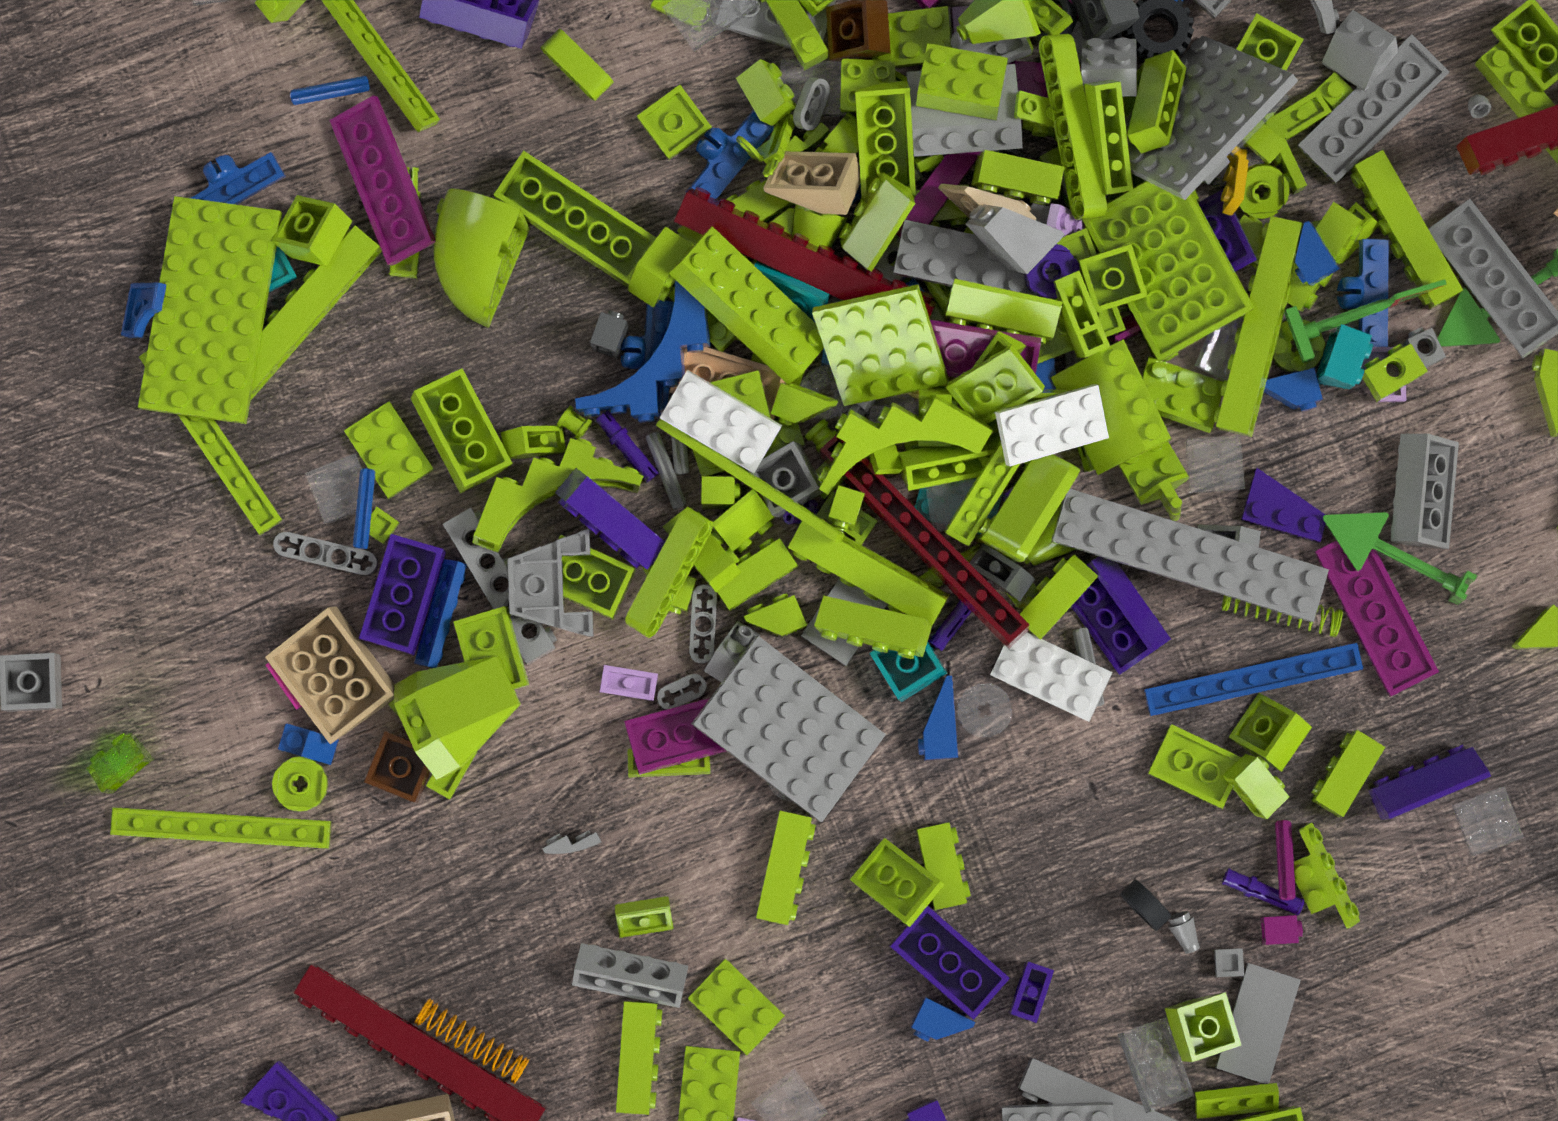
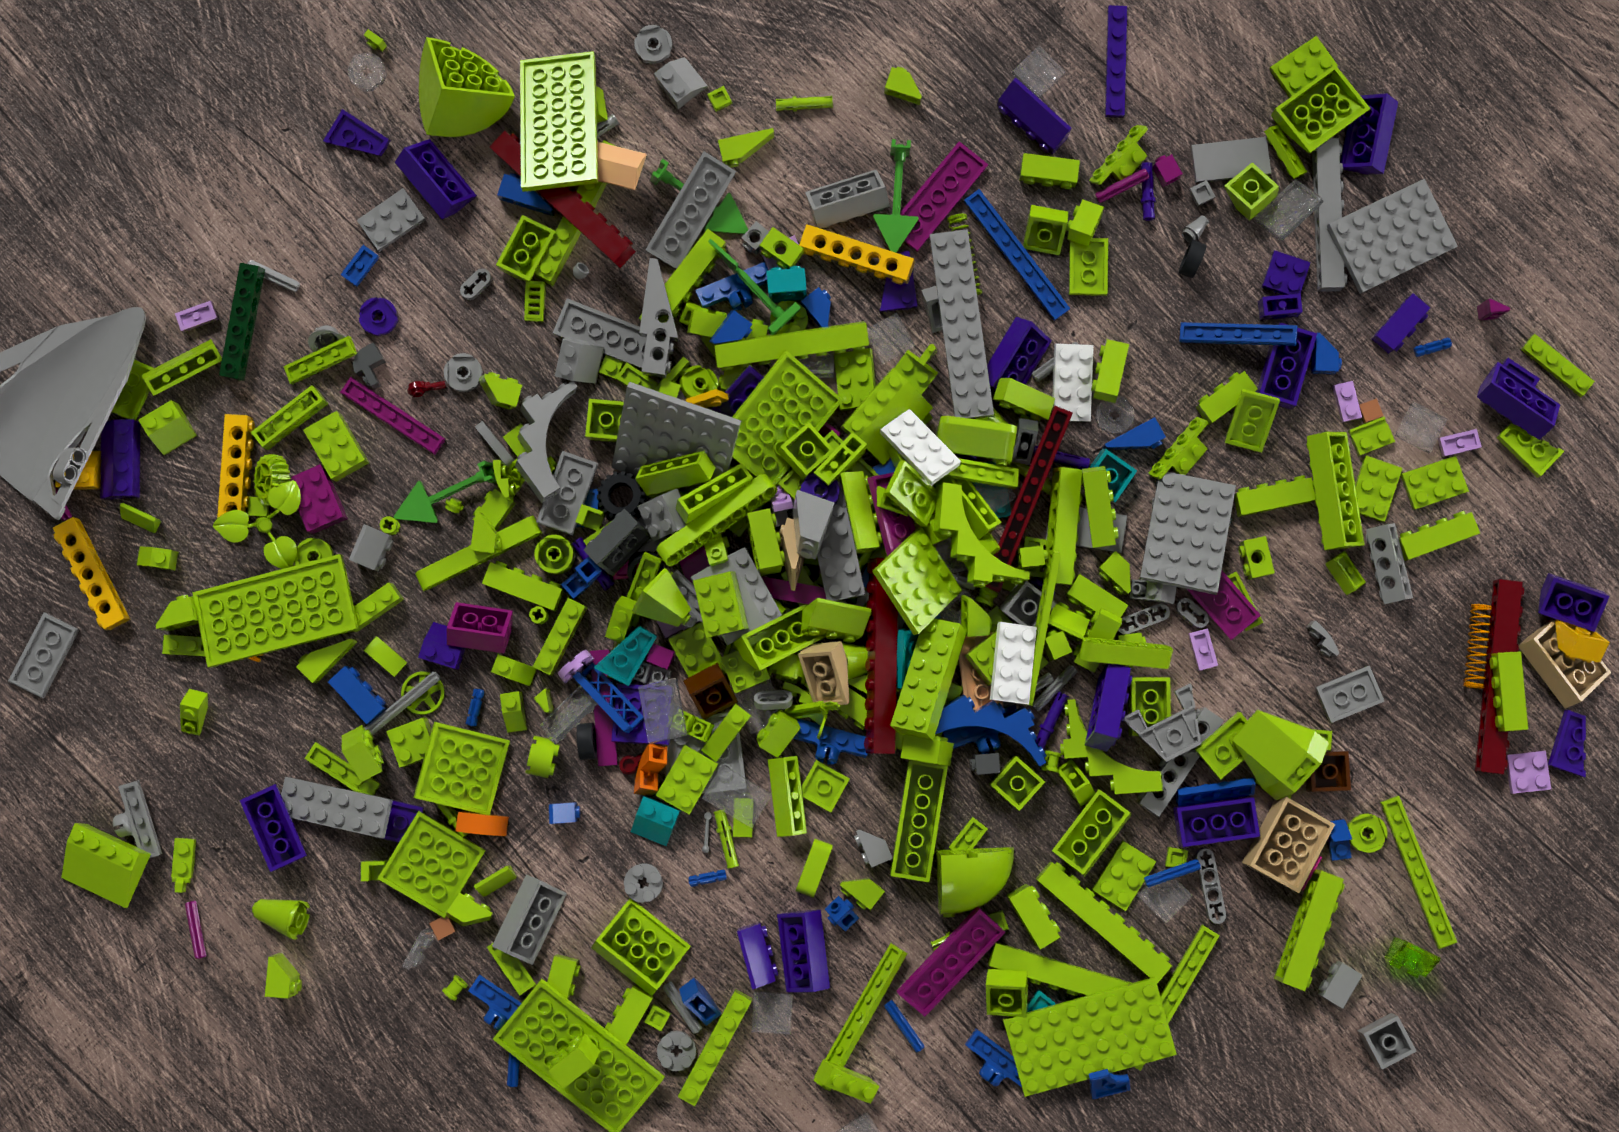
camera: 110 degrees left, 0 degrees up
(128, 658) = (1339, 984): none -> light grey brick
(214, 647) = (1309, 929): none -> lime brick
(281, 1031) = (1528, 772): none -> lavender plate
(342, 396) = (1103, 921): none -> lime brick
(391, 308) = (1034, 915): none -> lime brick
(395, 1047) = (1509, 691): none -> lime brick
(485, 845) = (1349, 694): none -> light grey plate
(504, 72) = (839, 910): none -> blue brick
(519, 114) = (863, 890): none -> lime slope
(528, 277) = (969, 835): none -> lime plate
(567, 150) = (875, 848): none -> light grey slope
(567, 364) = (1016, 783): none -> lime brick
(682, 69) = (787, 796): none -> lime brick
(699, 811) = (1260, 547): none -> lime brick
(756, 947) = (1335, 490): none -> lime brick
(807, 1035) = (1371, 436): none -> lime plate
(841, 1050) = (1370, 410): none -> nougat tile
(866, 1025) = (1347, 401): none -> lavender plate
(895, 777) = (1183, 452): none -> lime bracket
(1019, 918) = (1238, 334): none -> blue tile
(1045, 728) = (1110, 370): none -> lime brick
(1071, 1024) = (1285, 274): none -> dark purple plate
(1390, 175) = (654, 306): none -> light grey brick
(1393, 421) = (813, 235): none -> yellow brick
(1458, 932) = (1116, 61): none -> dark purple plate
(1469, 44) = (535, 284): none -> lime slope

